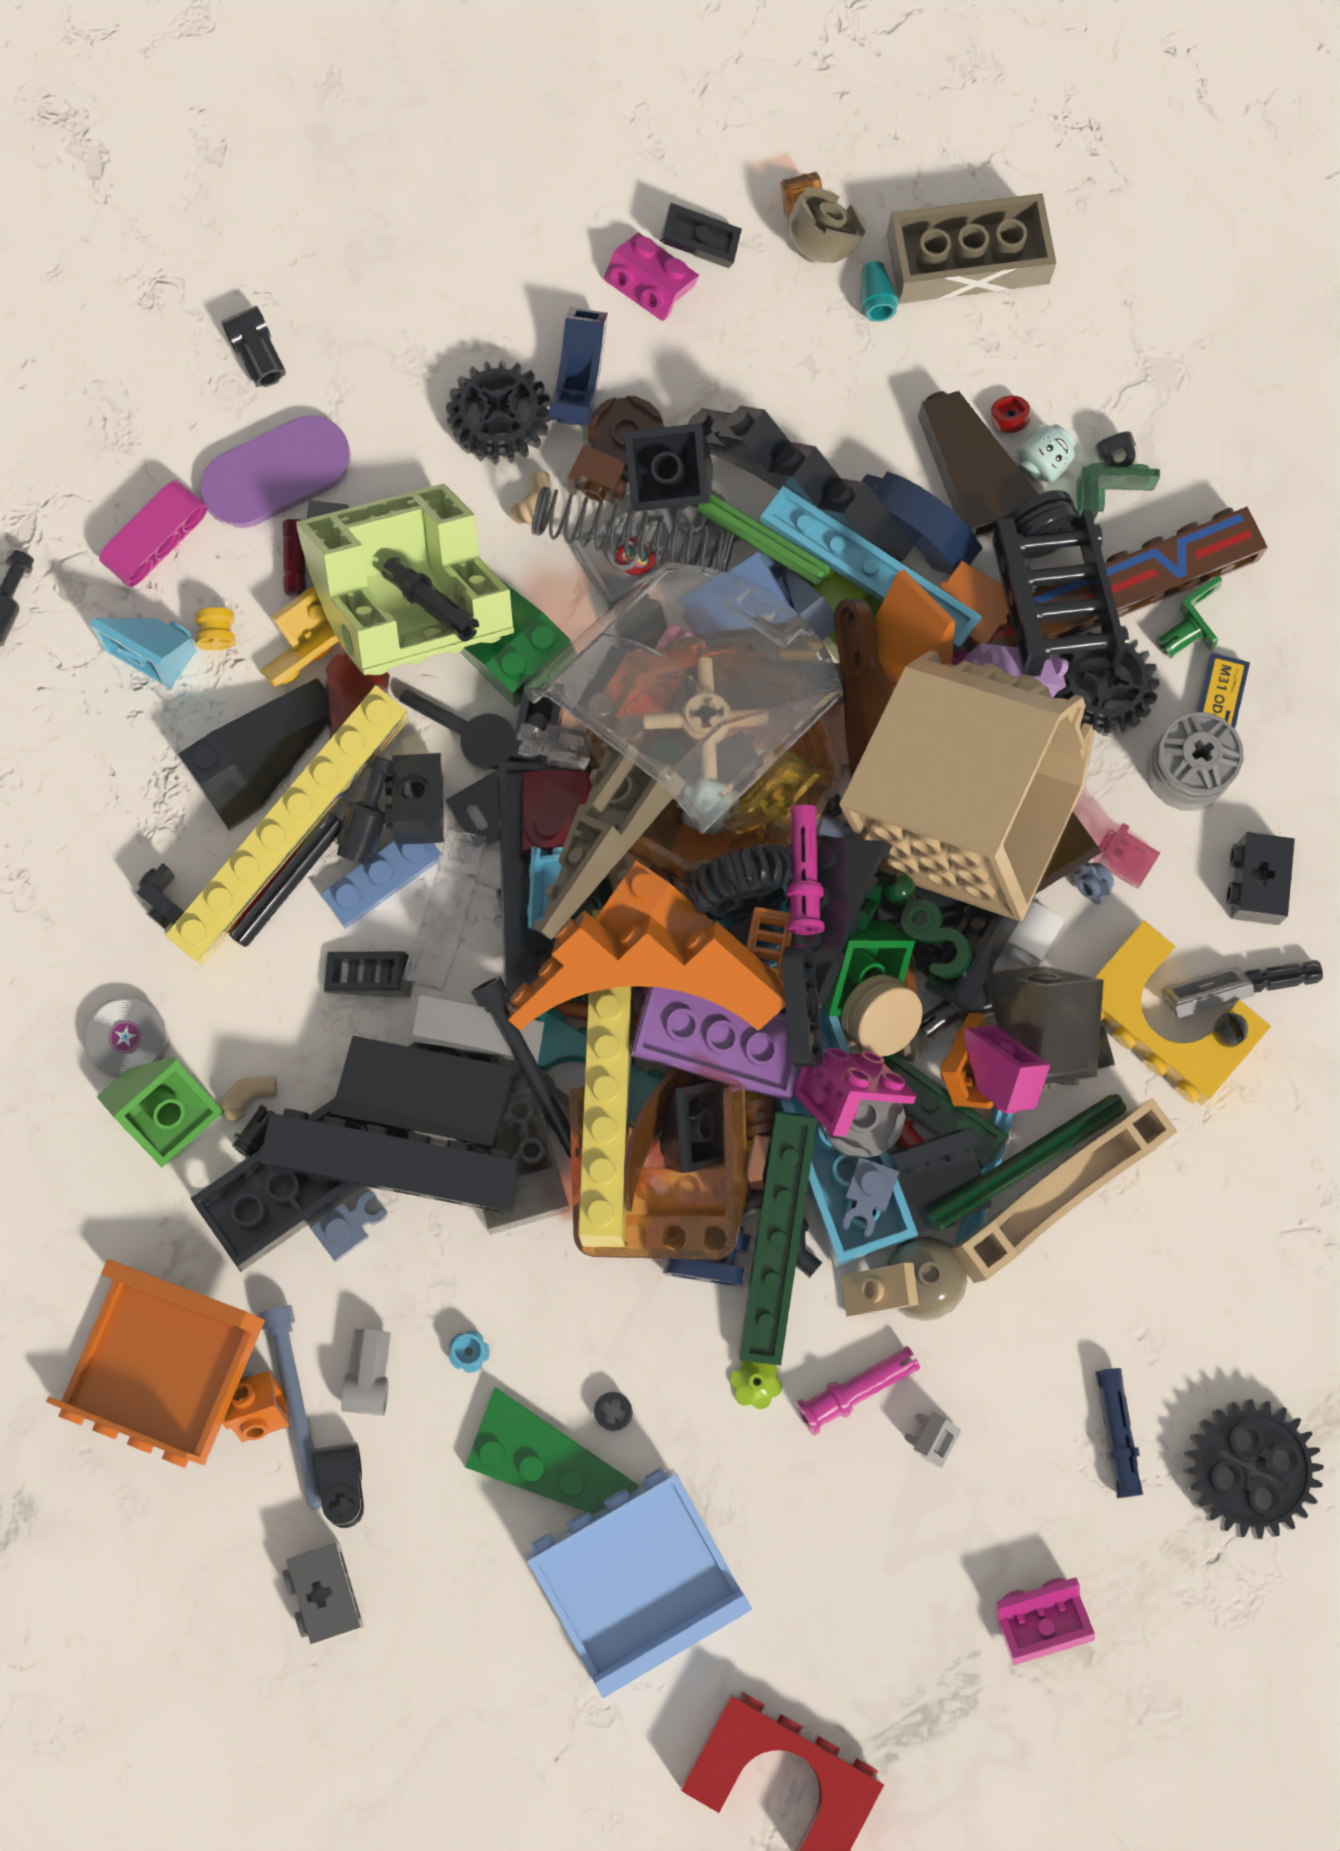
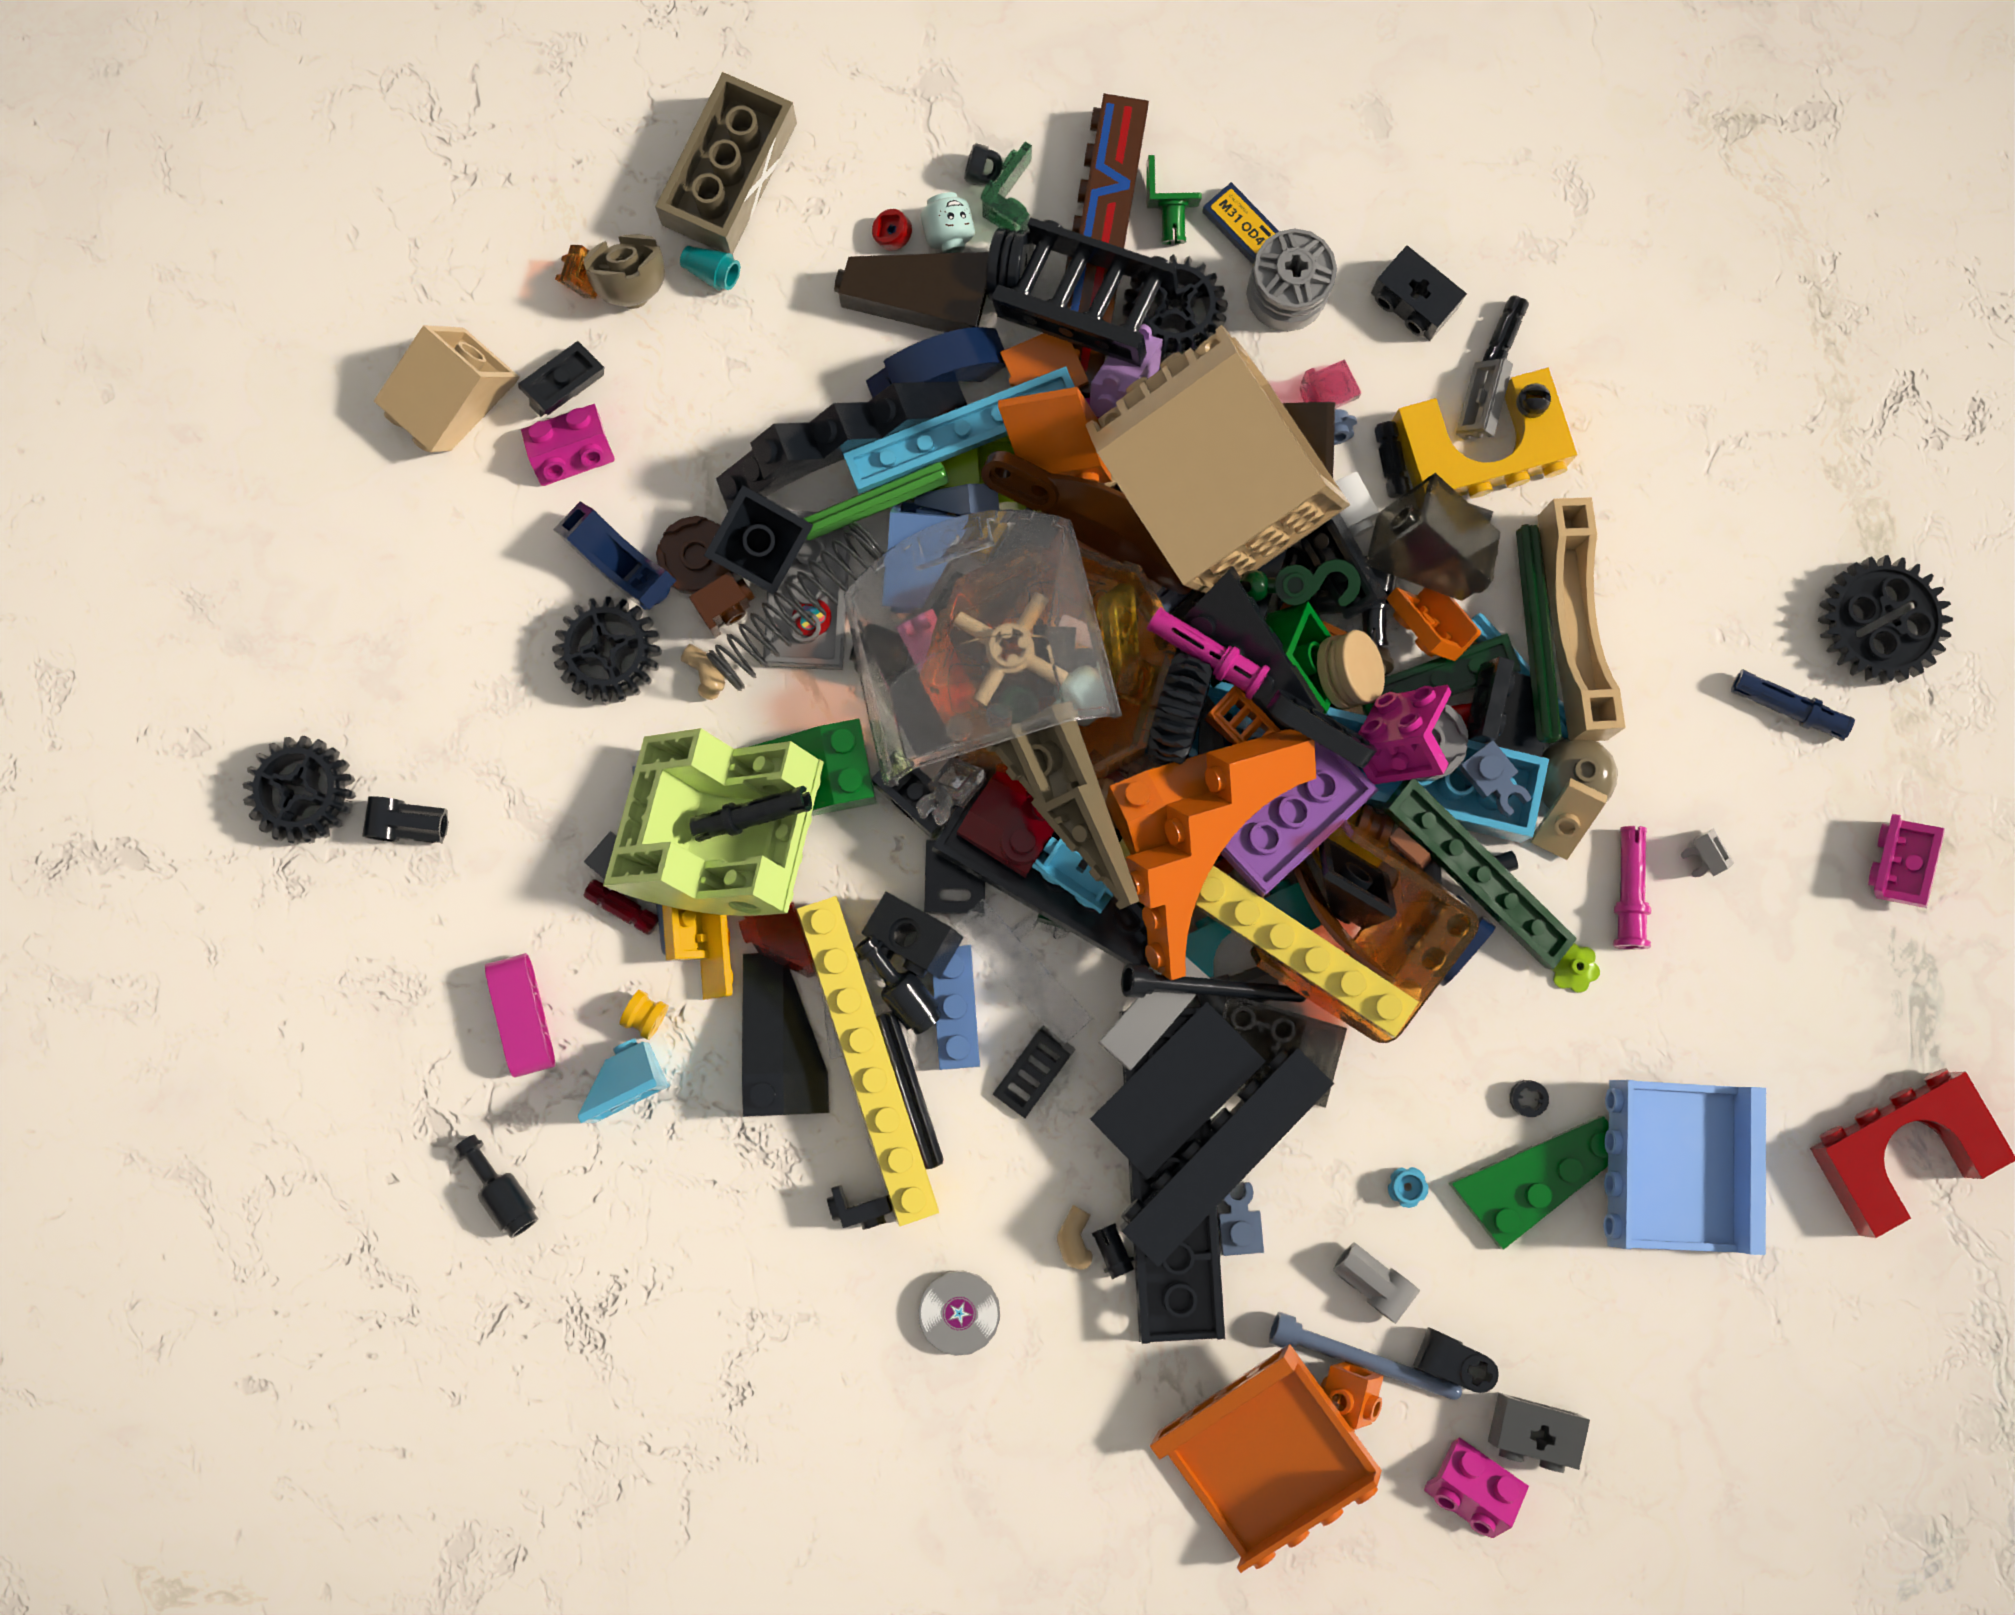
camera: 55 degrees left, 5 degrees up
(160, 1107) = (1041, 1322): bright green slope -> none
(199, 251) = (304, 775): none -> black gear
(241, 1571) = (1477, 1490): none -> dark pink bracket
(275, 471) = (531, 874): medium lavender tile -> none
(483, 739) = (892, 845): black piece -> none
(632, 151) = (444, 387): none -> tan slope
(1005, 1069) = (1460, 599): dark pink slope -> none
(1101, 947) = (1392, 459): none -> black axle

